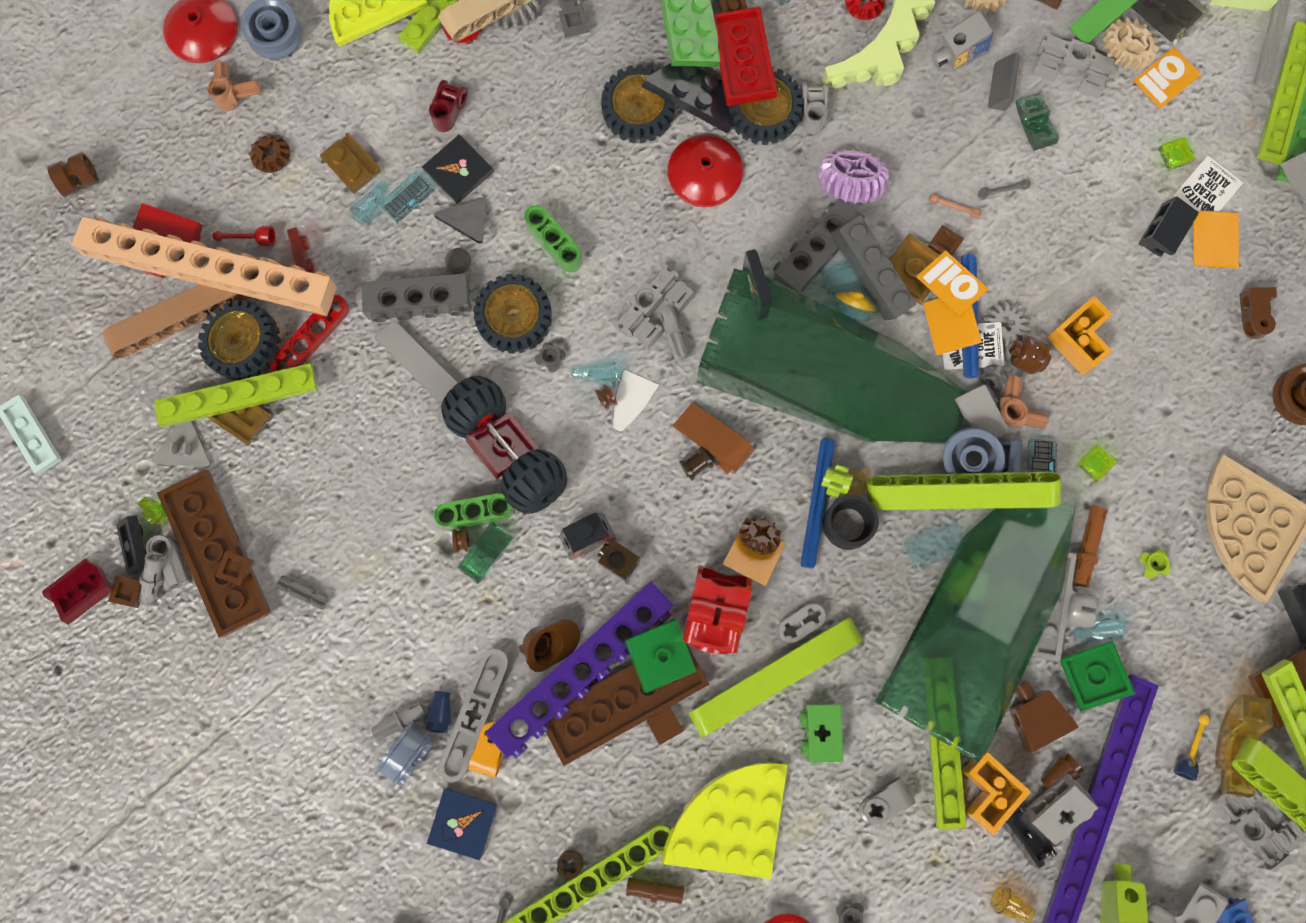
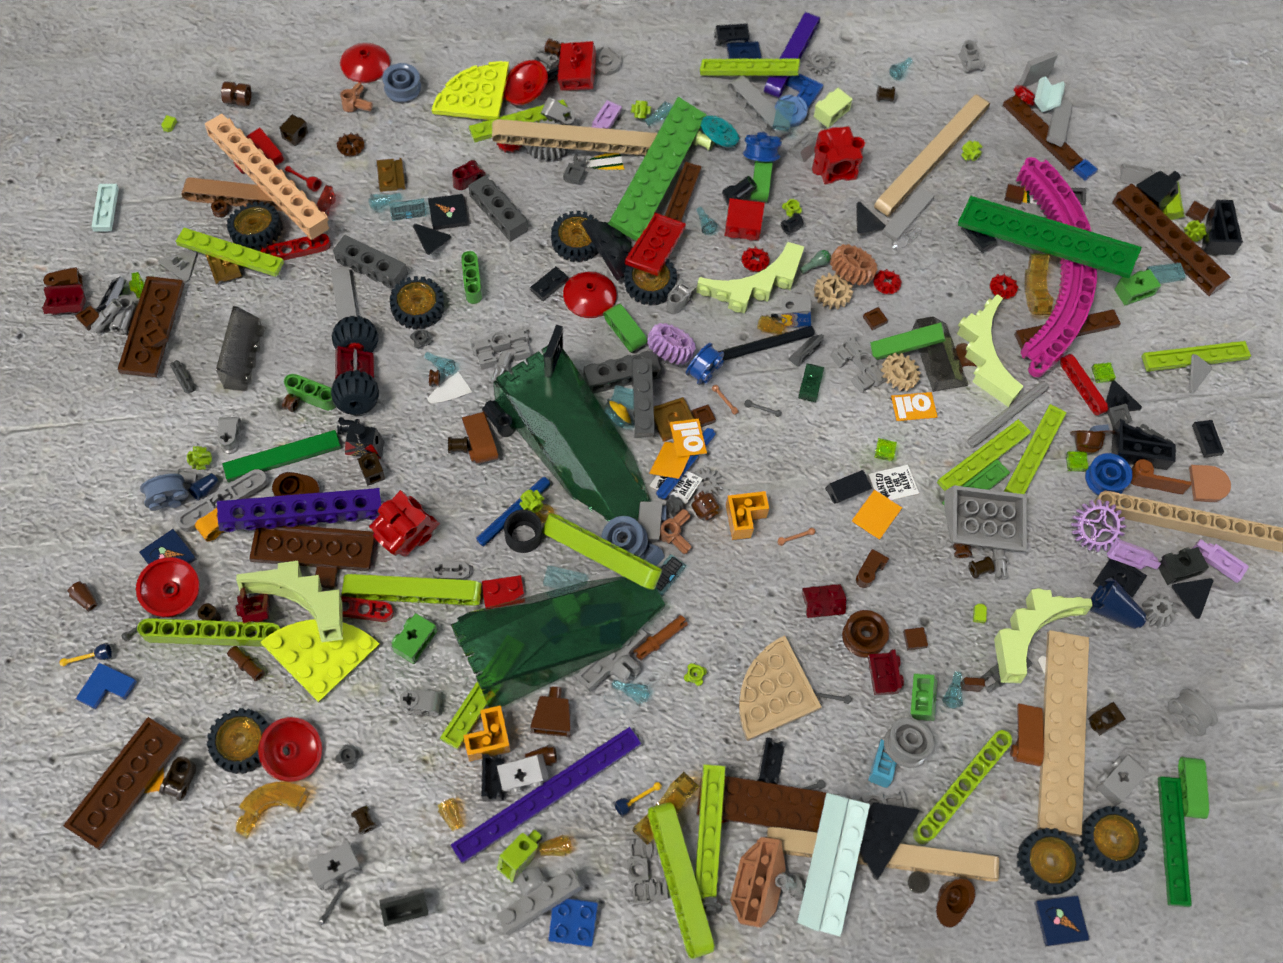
camera: 25 degrees right, 15 degrees down
(16, 268) = (168, 123): none -> lime piece
(56, 563) = (63, 277): none -> reddish brown leg
(166, 342) = (215, 206): none -> reddish brown bush
(185, 178) = (294, 129): none -> dark brown brick
(350, 515) = (239, 350): none -> clear smoke slope
(407, 682) = (199, 458): none -> lime gear
(414, 623) = (229, 433): none -> light grey piece
(458, 260) = (409, 257): clear smoke plate -> none
(485, 552) = (301, 416): clear green slope -> none
(495, 887) = (158, 578): none -> red dish
(499, 613) = (282, 455): none -> green tile
(501, 129) = (498, 208): none -> dark grey brick
(551, 525) = (343, 425): none -> black bush
(617, 822) = (252, 608): none -> dark red bracket
(648, 187) = (549, 283): none -> black plate
(660, 655) = (350, 529): green plate -> none
(665, 764) = (306, 591): none -> yellowish green arch
(716, 397) = (498, 418): none -> black piece
(727, 744) = (356, 603): none -> red beam
(750, 564) = (452, 513): light orange sticker -> none
(760, 544) = (460, 510): reddish brown gear -> none
(780, 188) = (625, 328): none -> bright green beam
(876, 612) = (502, 590): none -> red wing
(912, 177) = (705, 364): none -> blue wheel
(942, 77) = (770, 325): none -> clear yellow cone
(950, 107) = (769, 342): none -> black axle
(1096, 463) = (701, 592): clear neon green plate -> none
(1096, 676) = (606, 713): green plate -> none
(1137, 340) = (781, 541): none -> nougat hinge
(1150, 863) = (556, 846): none -> clear yellow cone
(1233, 381) = (824, 600): none -> dark red bracket

